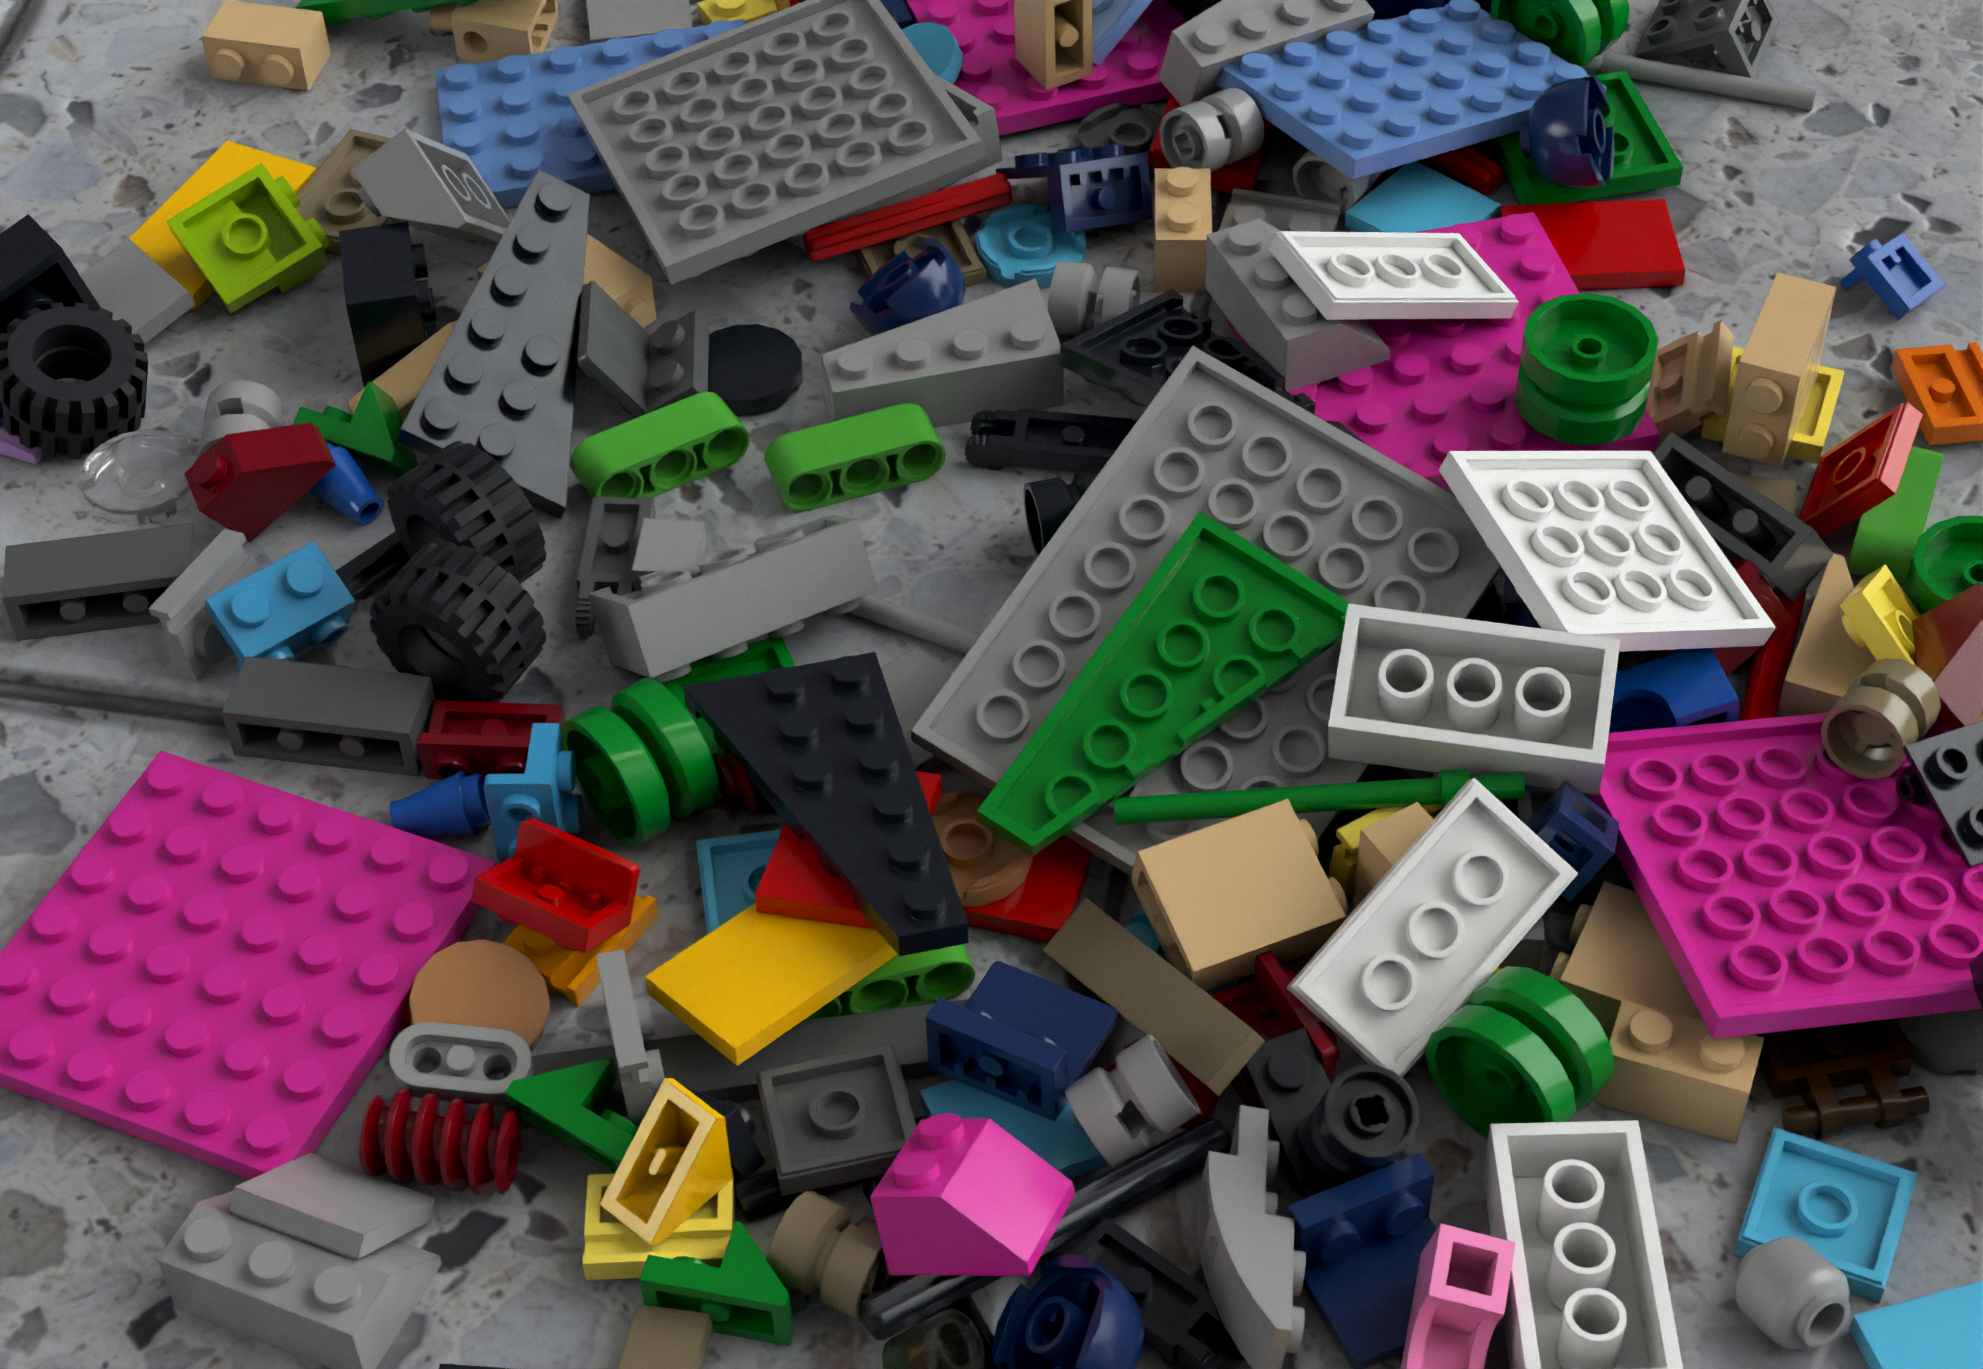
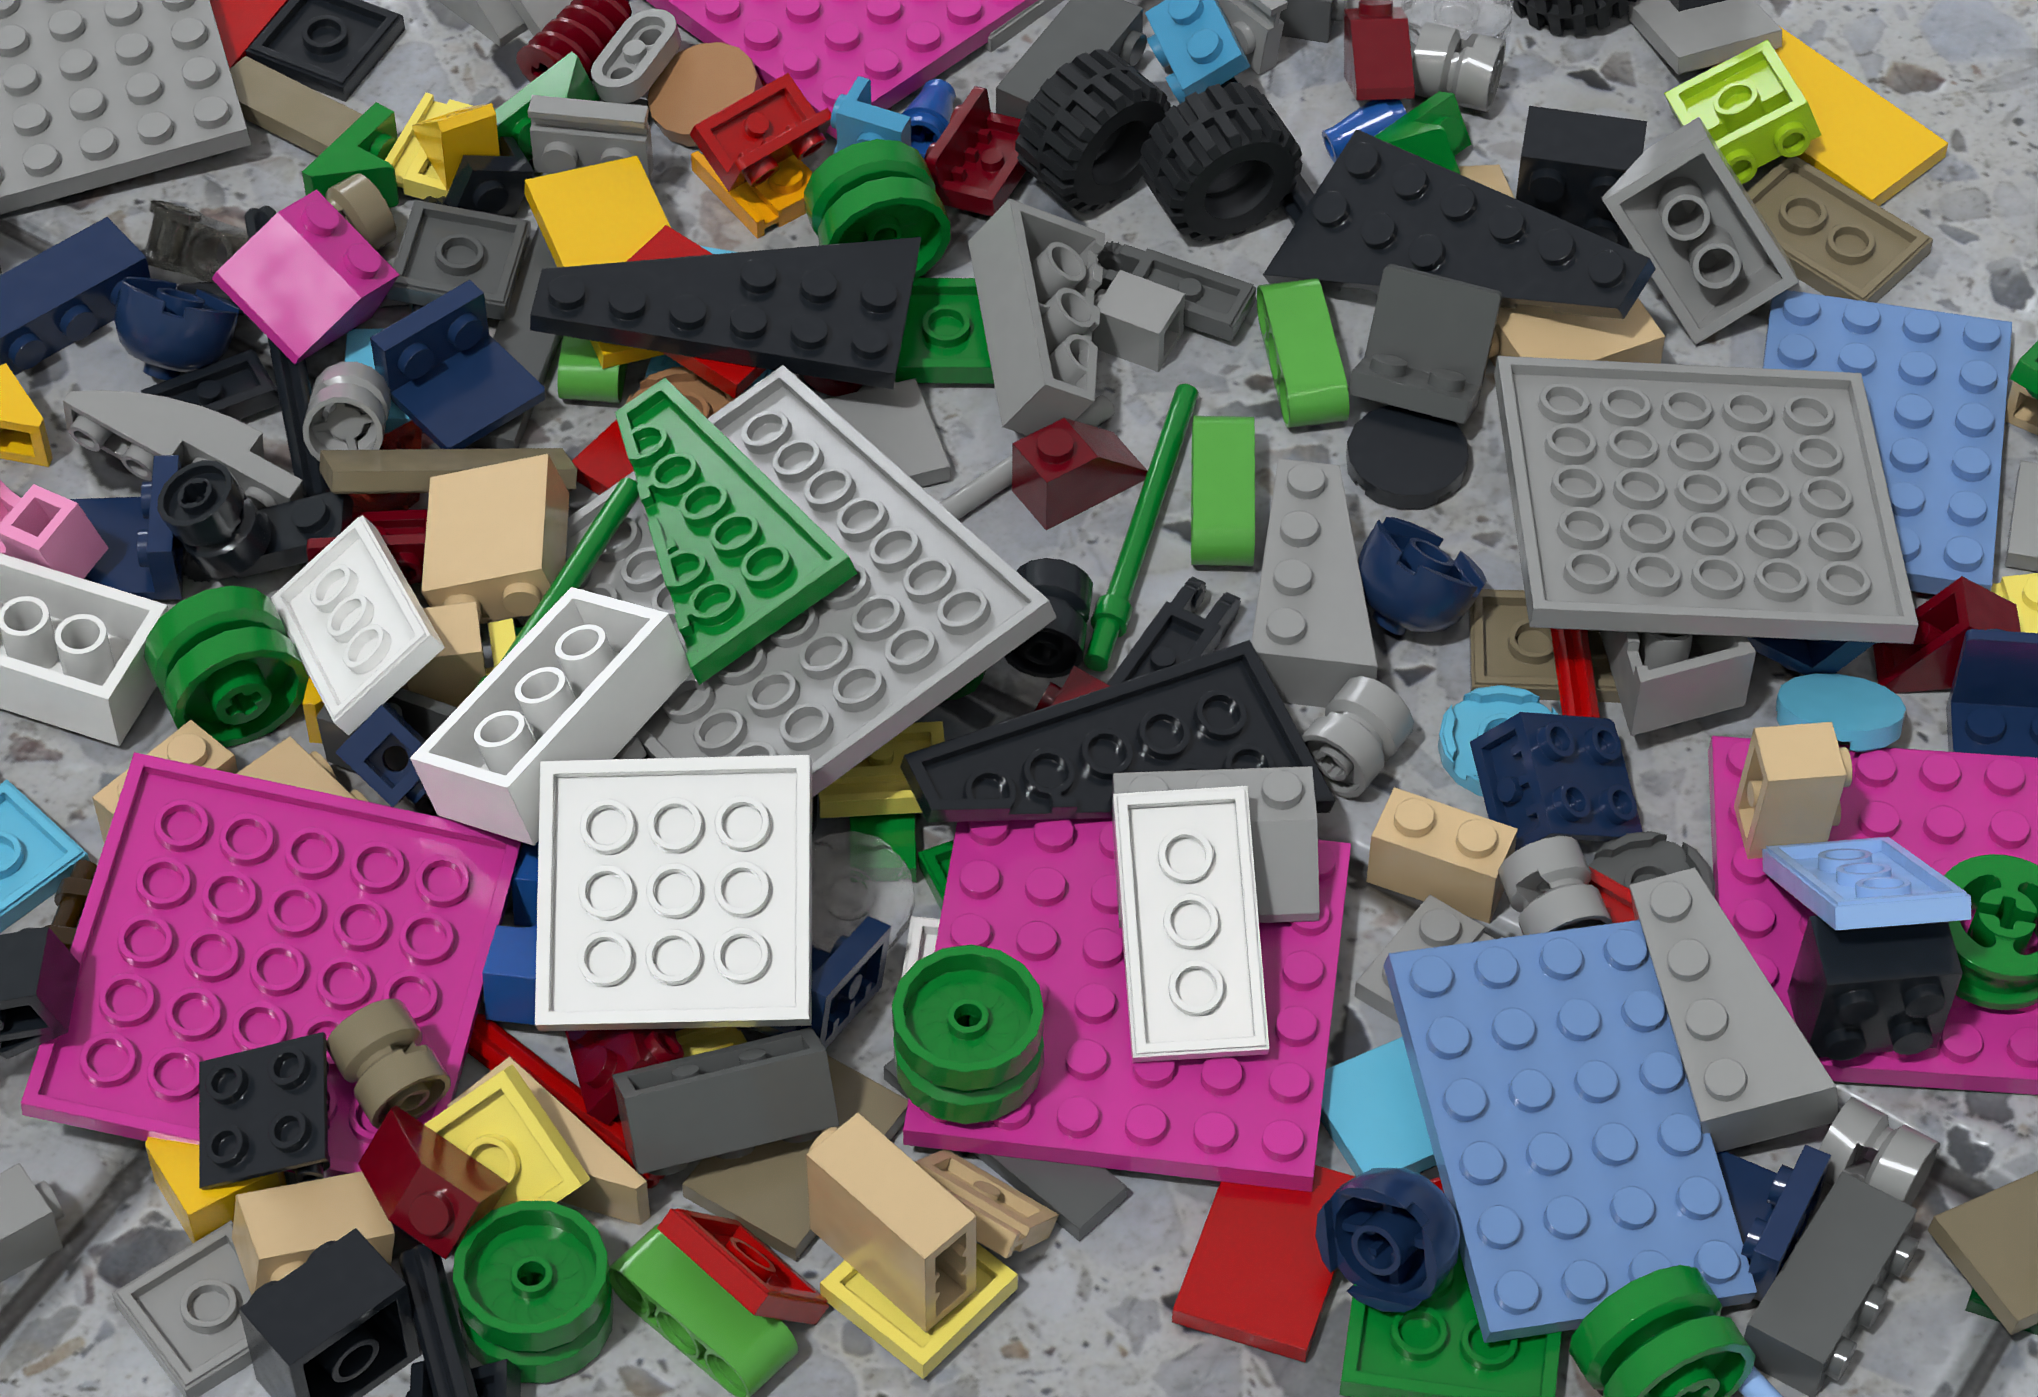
camera: 110 degrees right, 5 degrees up
(888, 508) = (1113, 610): none -> green bar
(902, 555) = (1071, 470): none -> dark red slope

